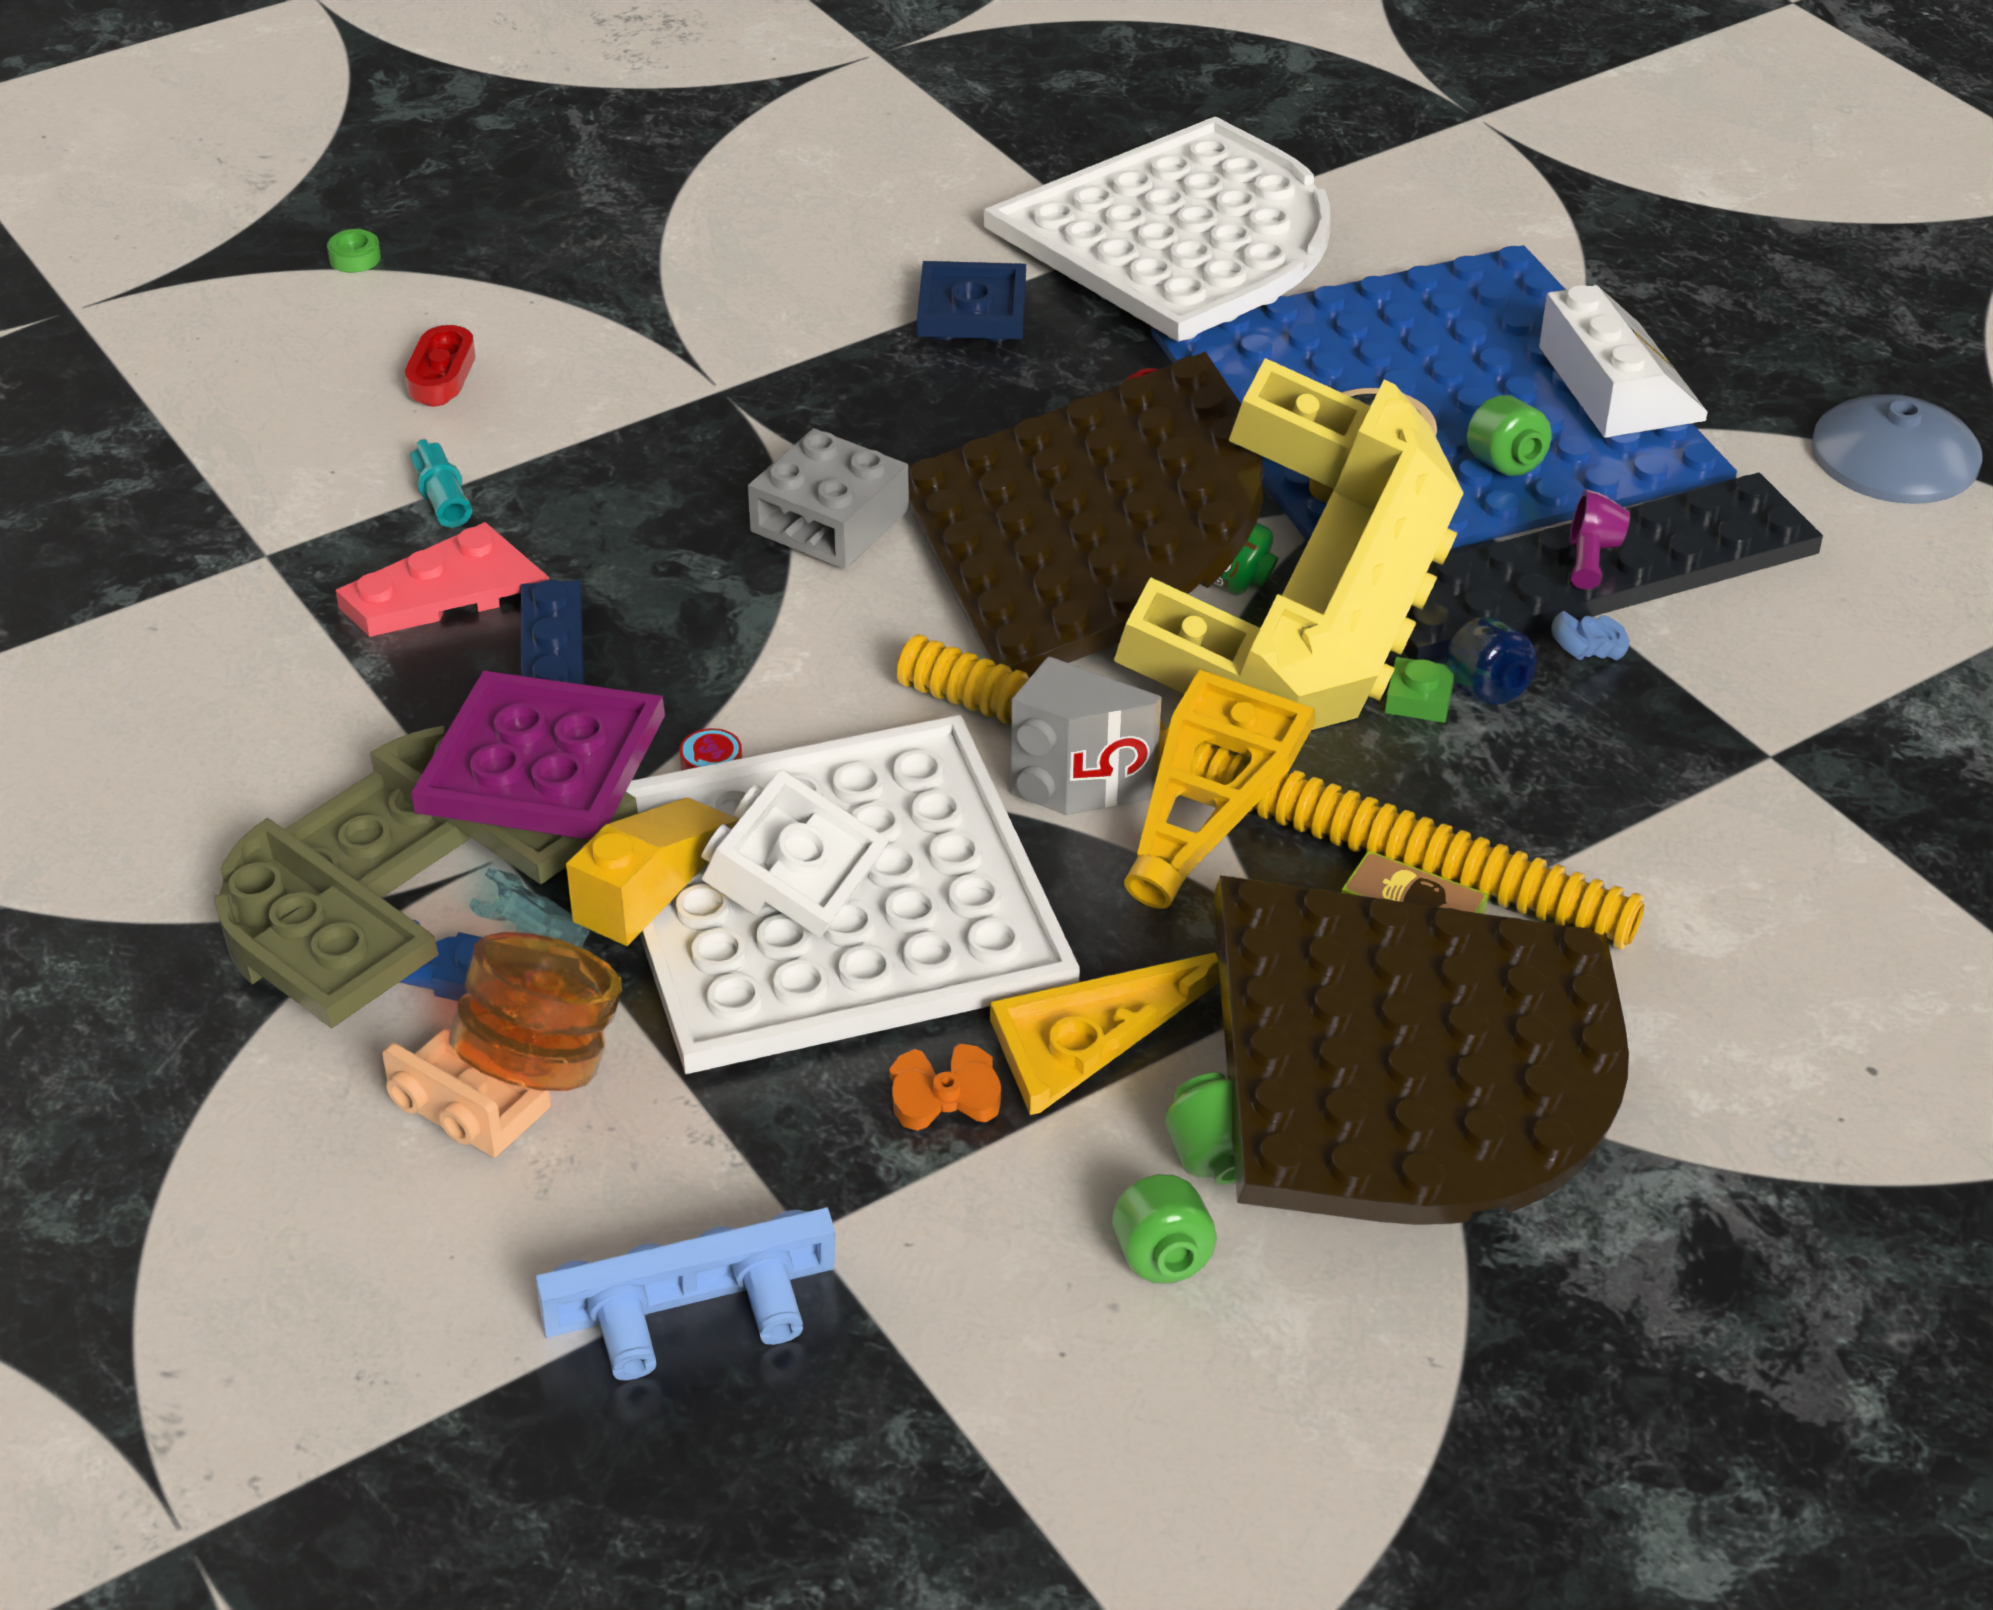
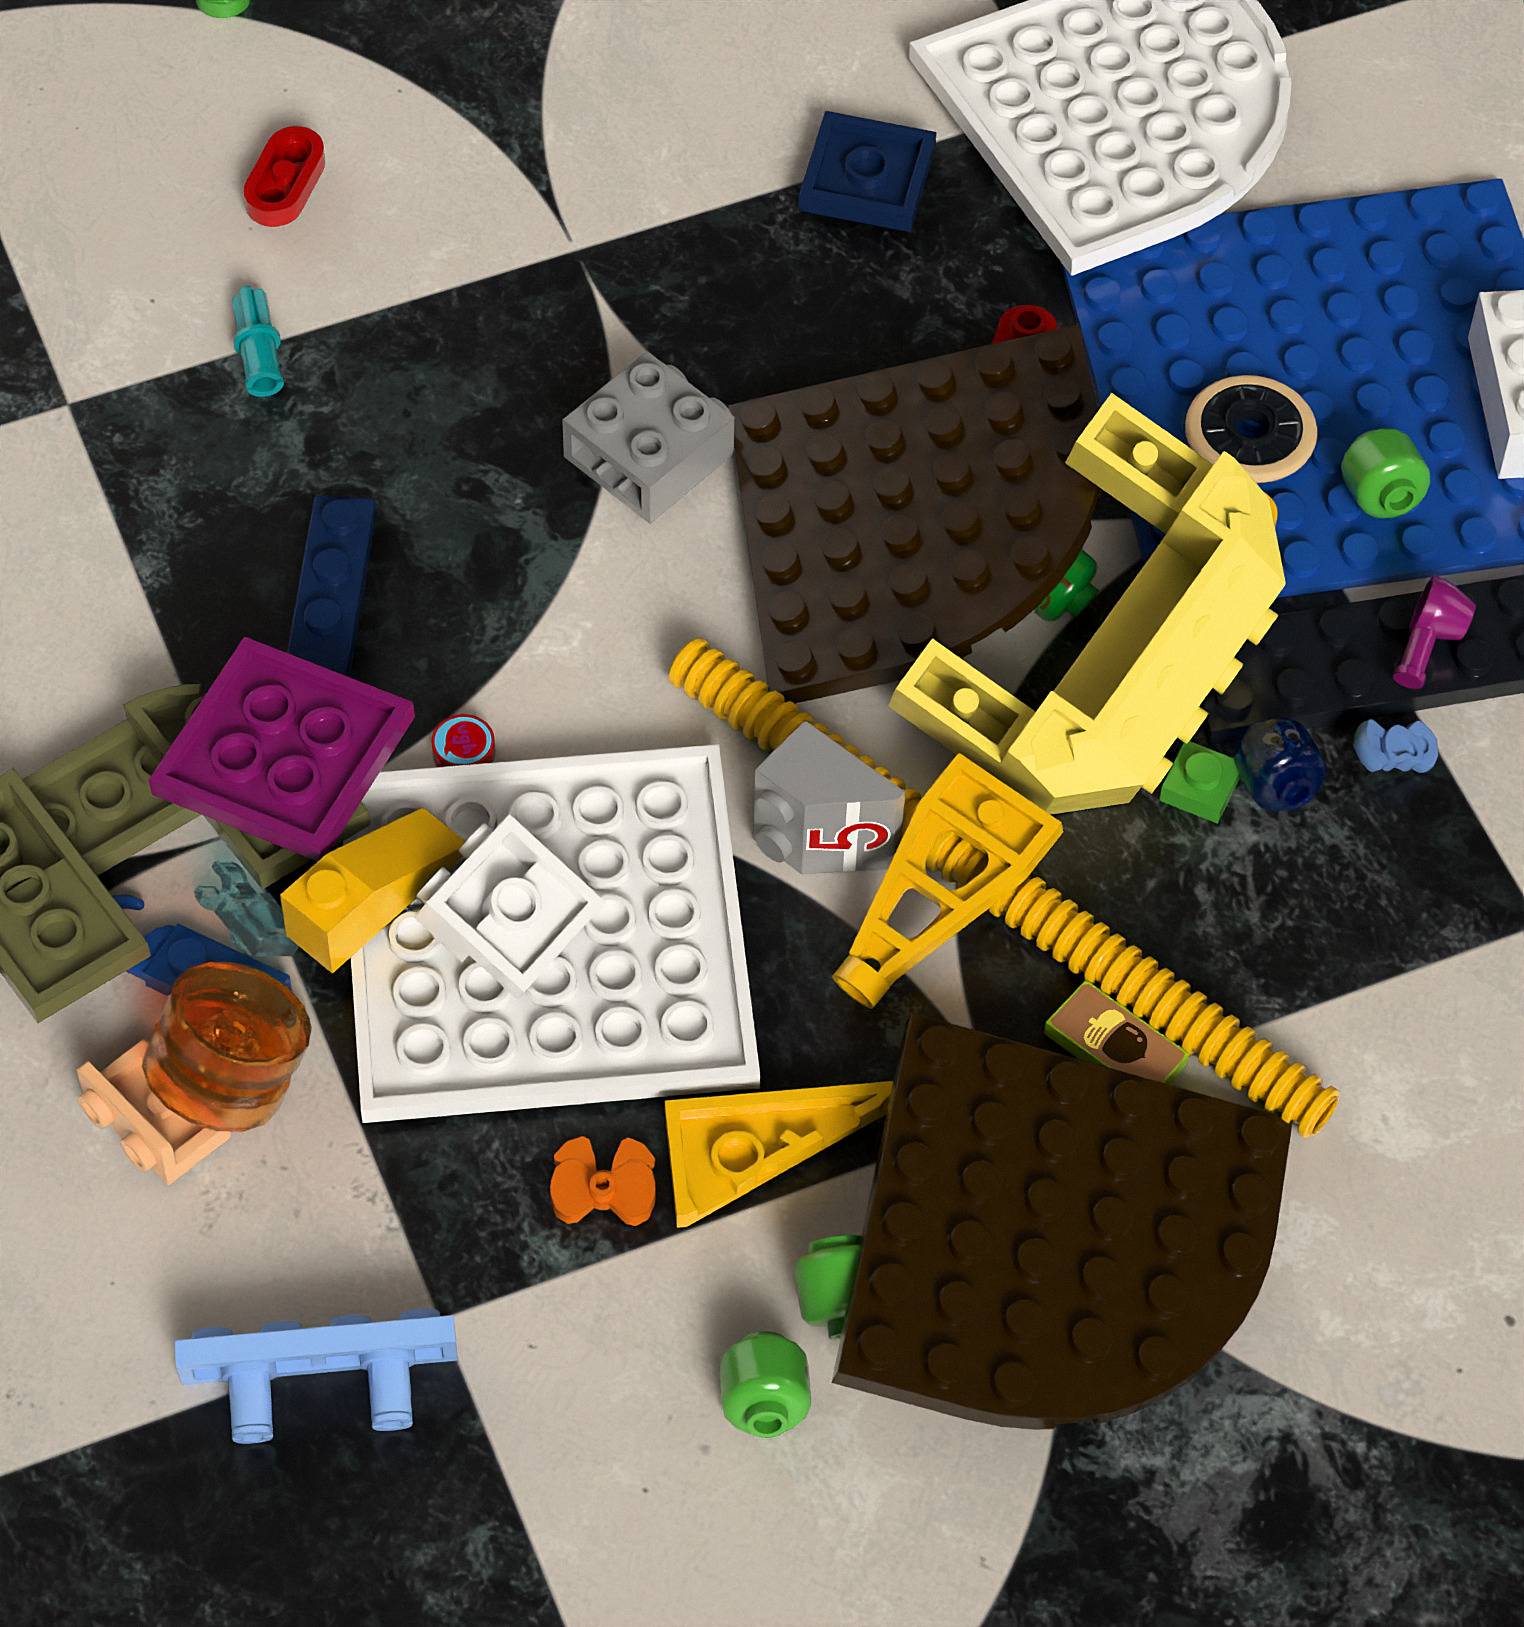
camera: 10 degrees right, 15 degrees up
(457, 572) = (243, 469): coral wing -> none

